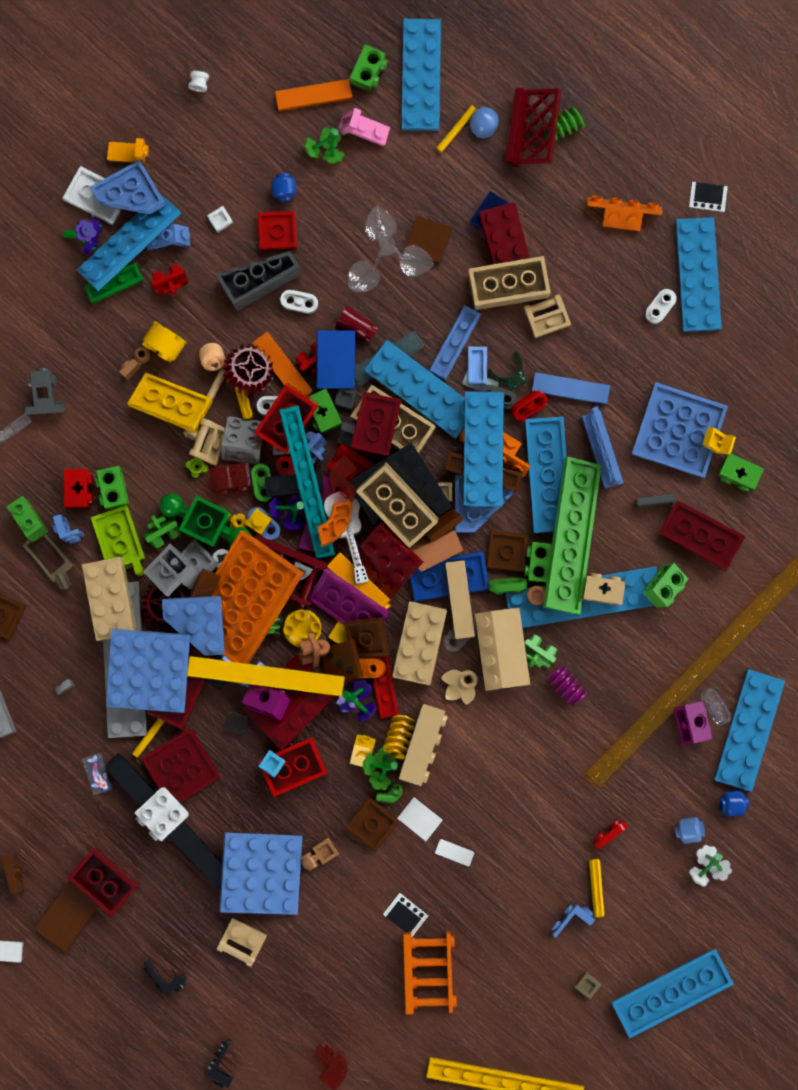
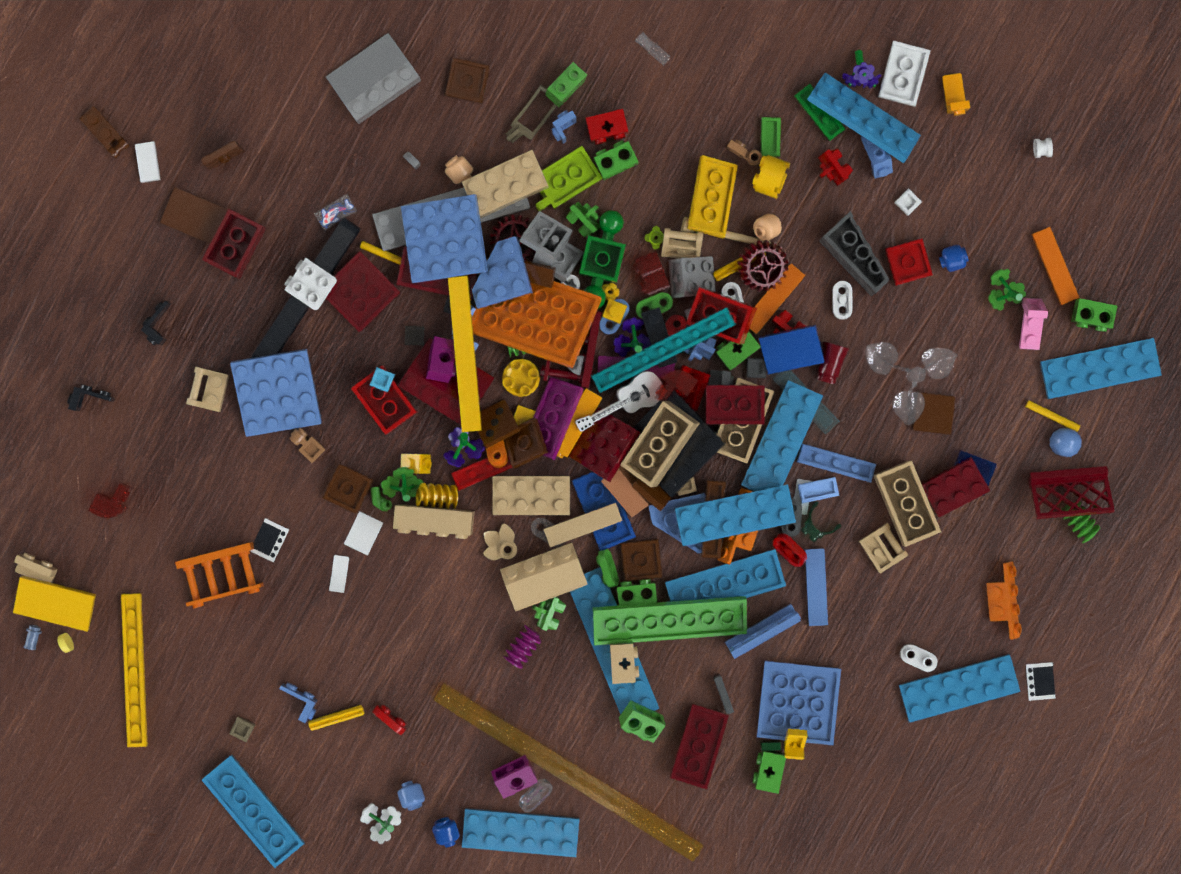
camera: 75 degrees right, 5 degrees up
(43, 378) = (707, 67): dark grey tile -> none
(84, 642) = (458, 169): none -> light nougat head
(125, 335) = (770, 136): none -> bright green tile
(129, 190) = (915, 106): medium blue plate -> none
(312, 650) = (500, 392): nougat hips -> none
(336, 524) = (629, 388): orange tile -> none
(536, 595) = (603, 598): nougat tile -> none
(715, 466) = (767, 745): none -> dark green tile

